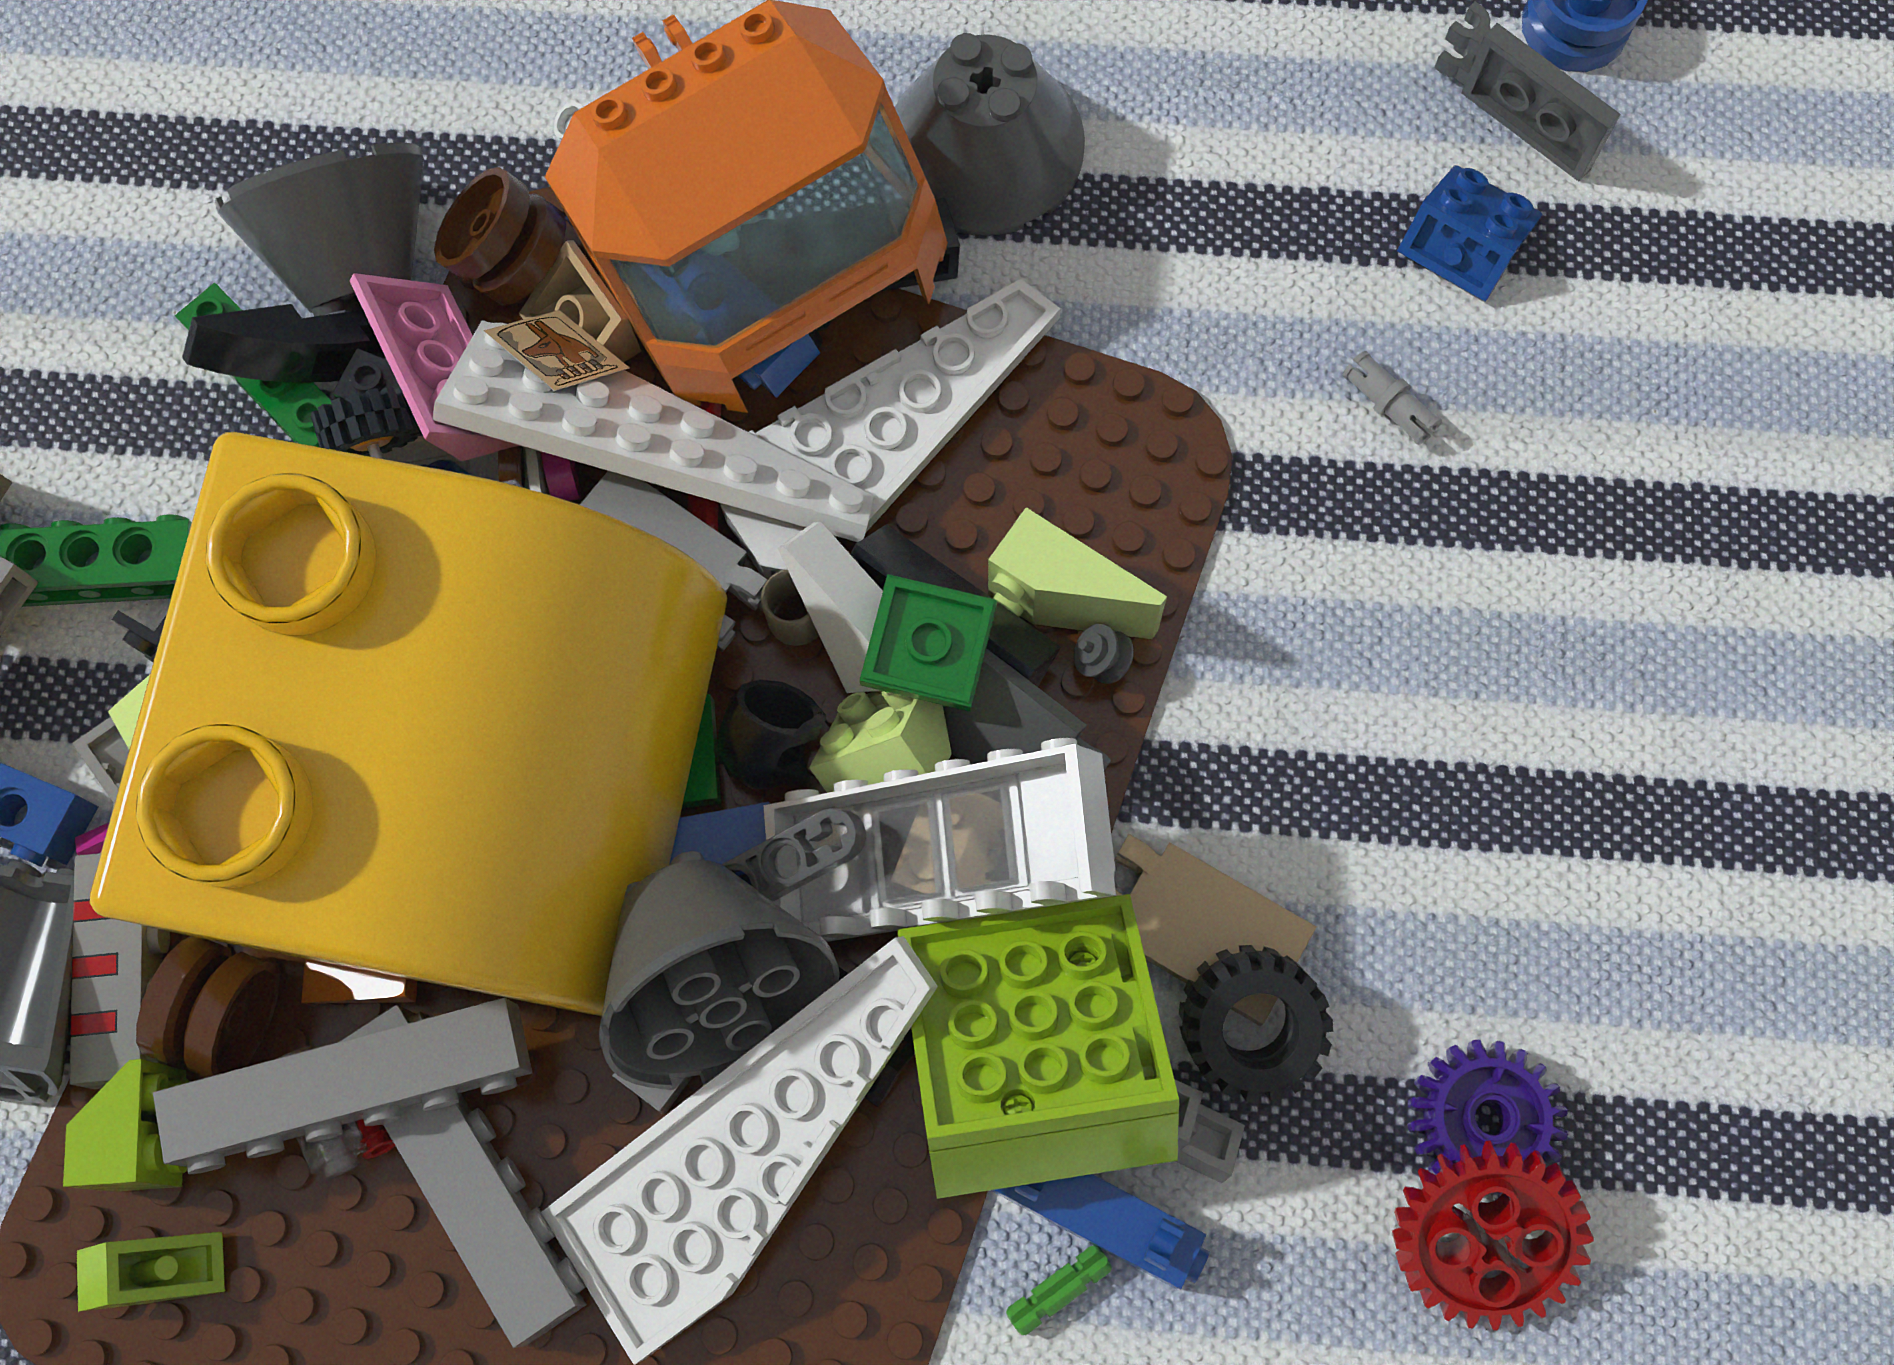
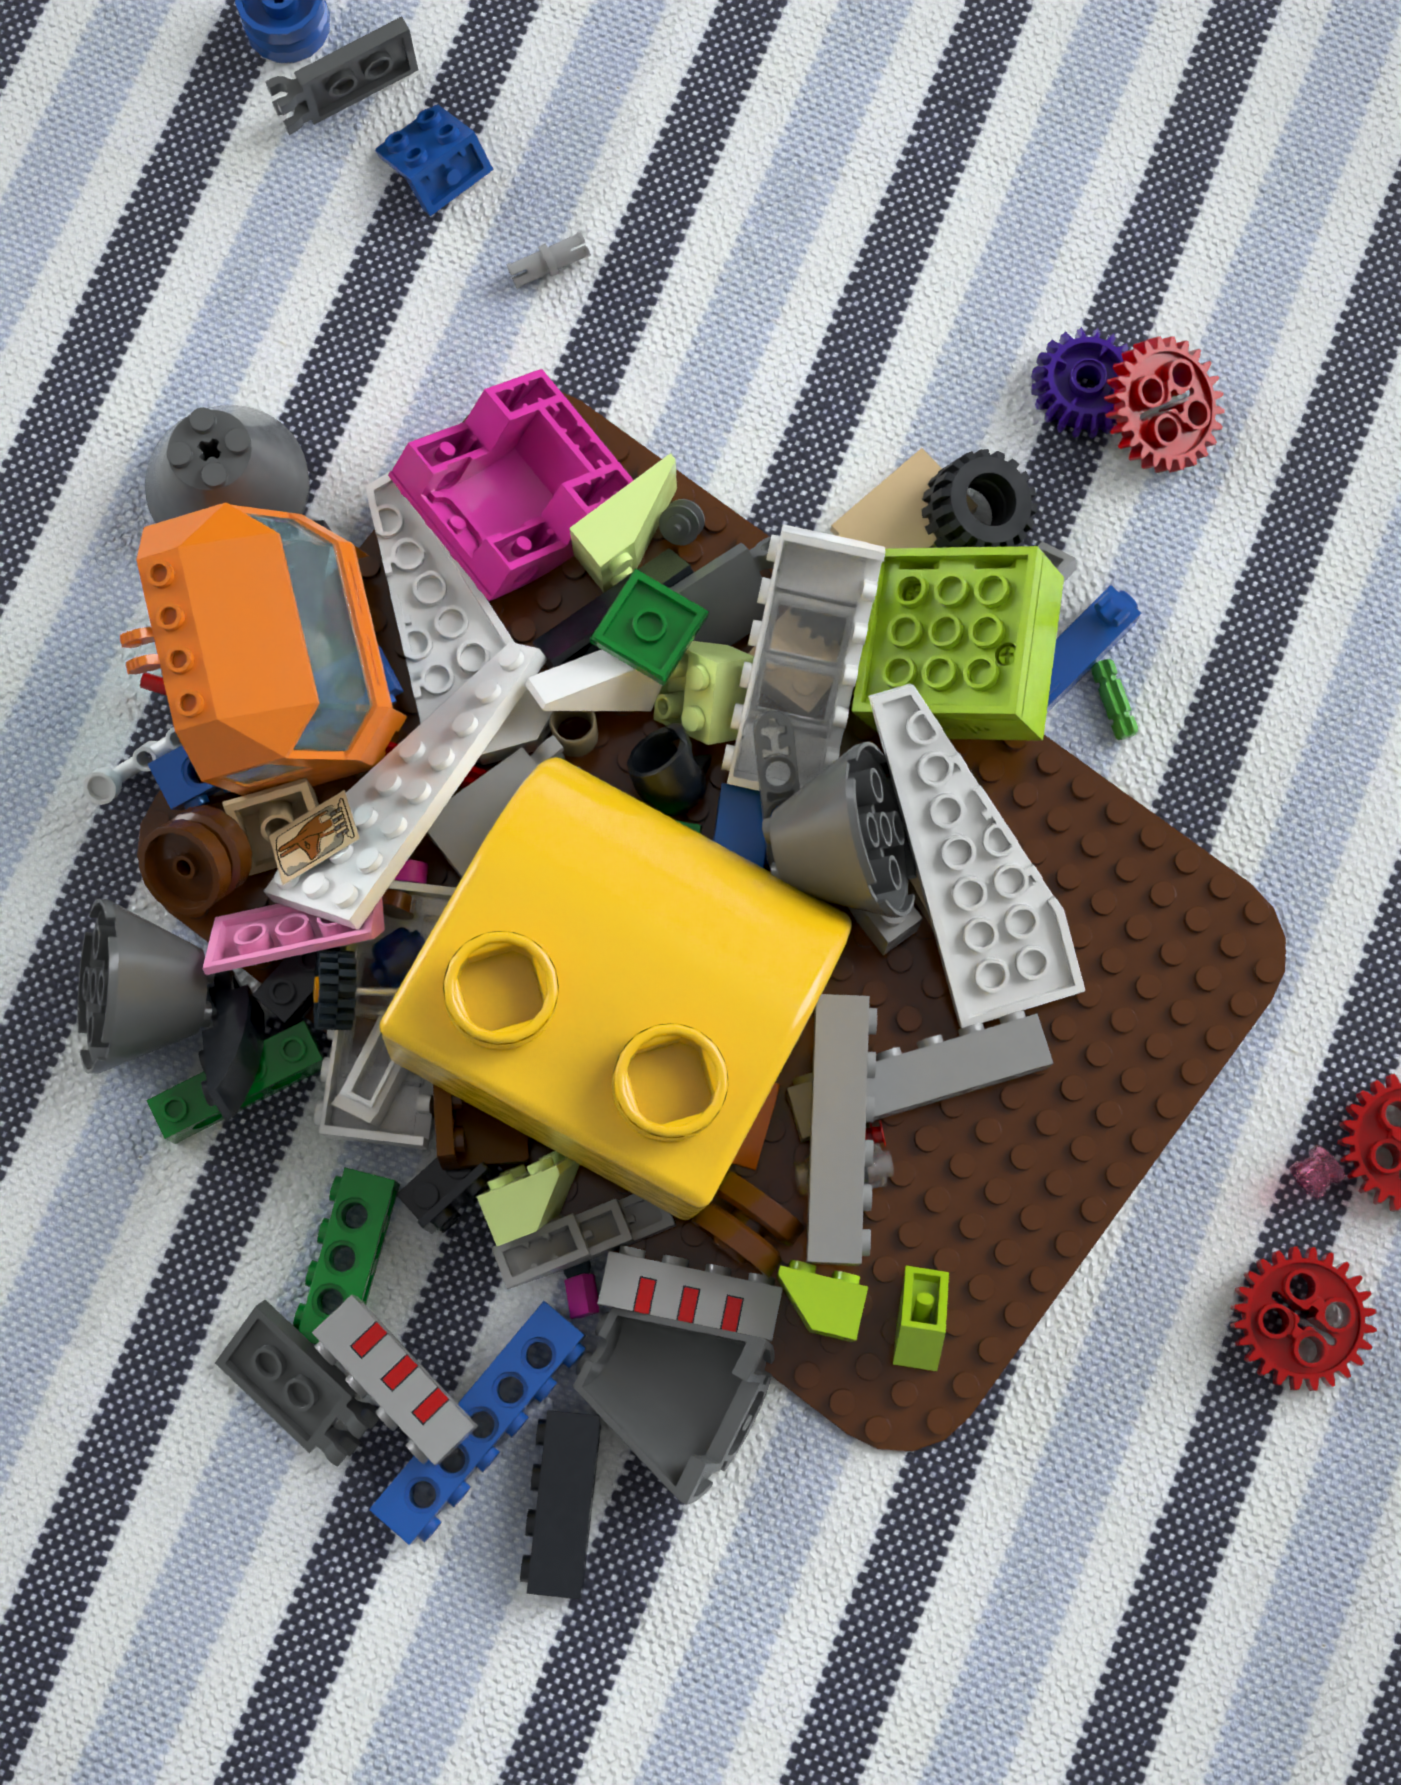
camera: 75 degrees left, 5 degrees up
(1079, 432) = (510, 482): none -> dark pink slope

